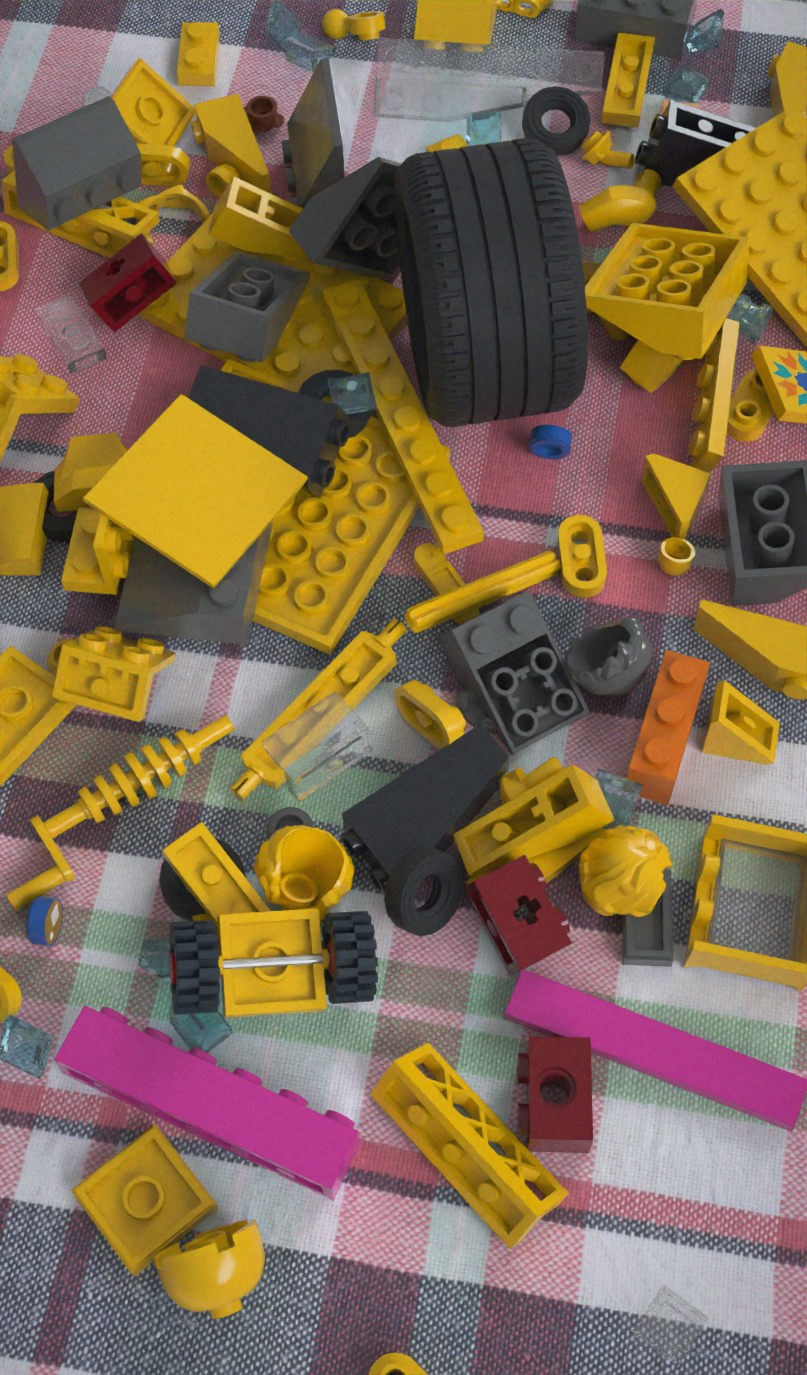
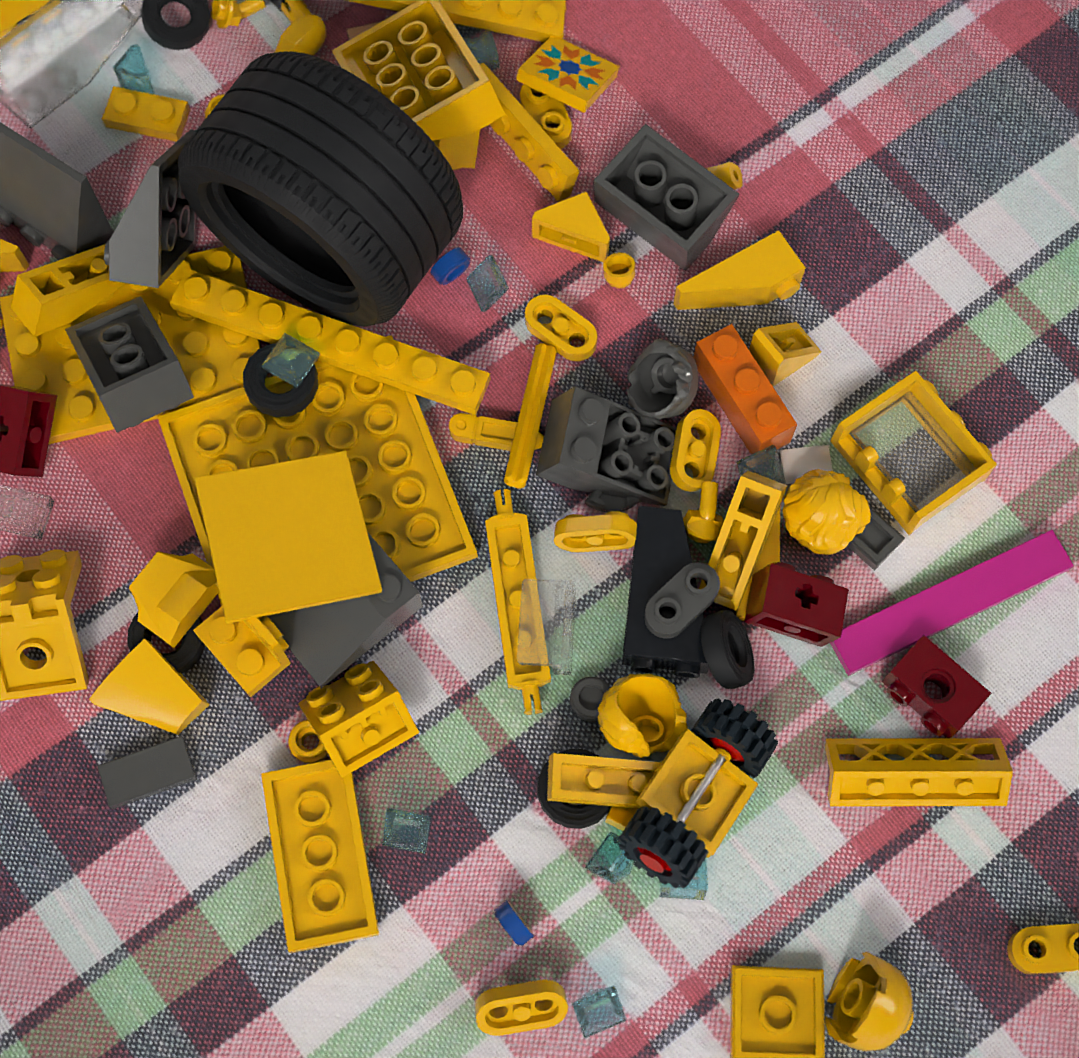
camera: 50 degrees left, 10 degrees up
(55, 782) = (406, 830): none -> clear light blue slope
(90, 805) = (452, 800): yellow piece -> none
(210, 1101) = (749, 916): dark pink brick -> none
(284, 422) = (267, 432): black slope -> none
(427, 820) = (683, 599): none -> dark grey plate
(566, 479) = (487, 283): none -> clear light blue slope
(577, 733) = (695, 453): none -> yellow plate
(669, 830) = (802, 460): none -> white sticker

